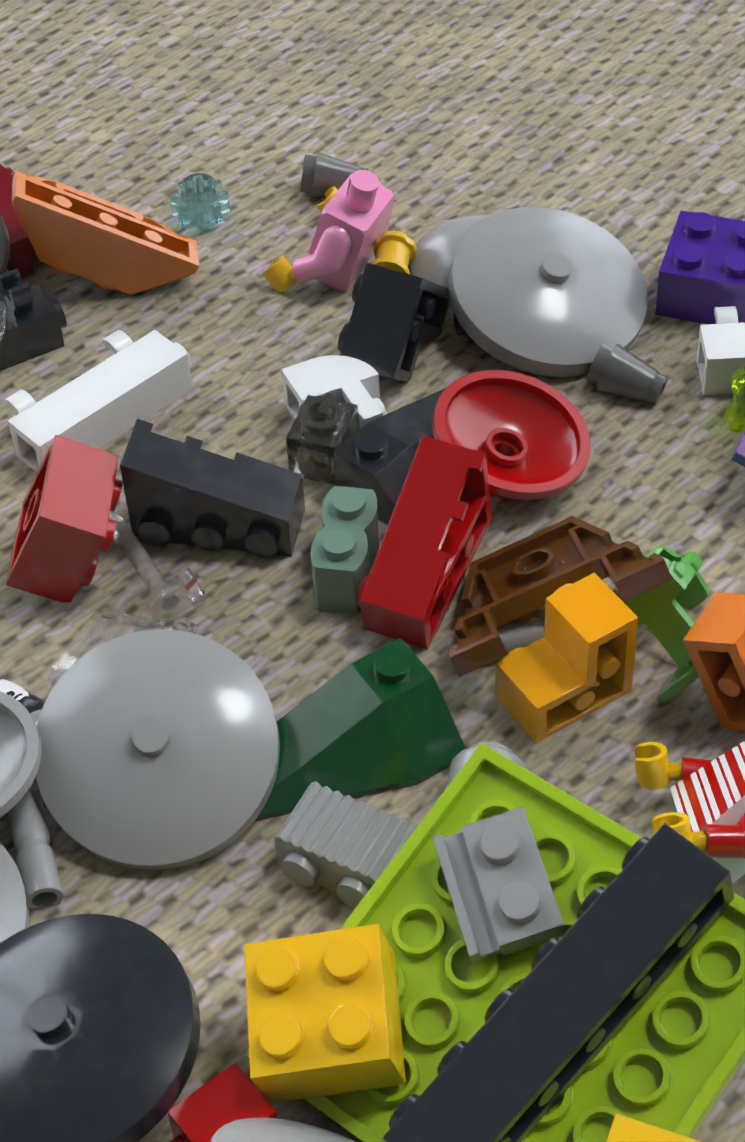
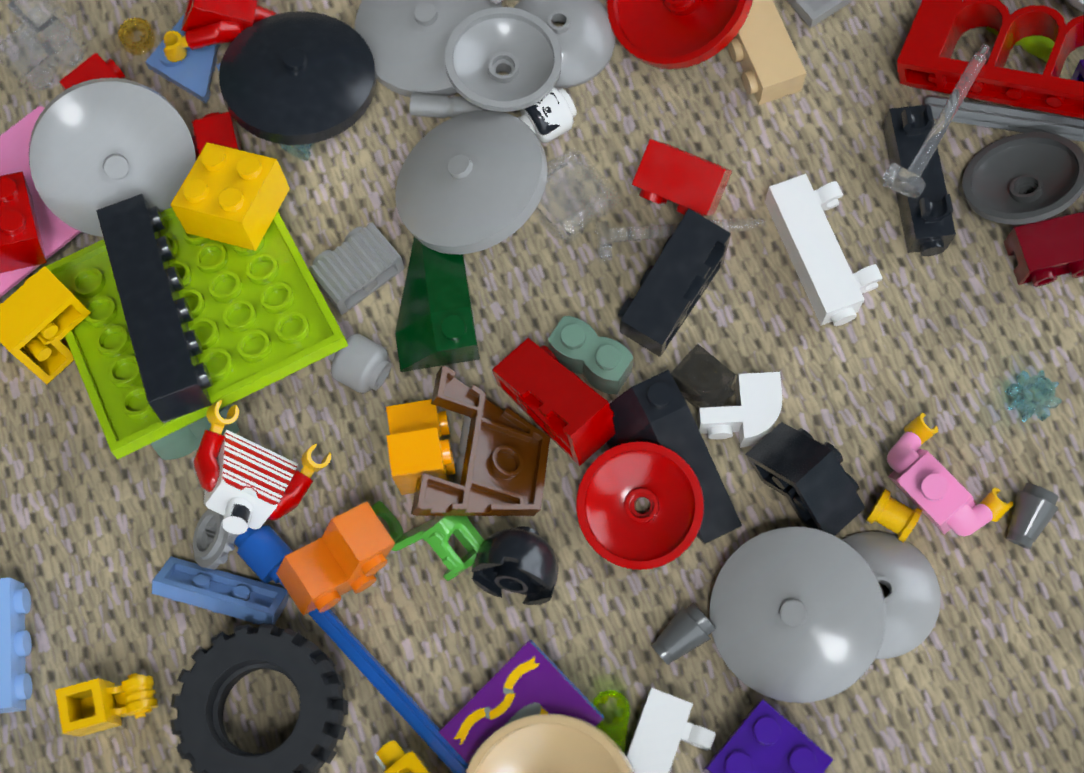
camera: 115 degrees right, 25 degrees up
(99, 238) = (1002, 293): orange wedge -> none
(499, 886) = (249, 309): light grey plate -> none
(645, 510) = (517, 563): none -> black cylinder

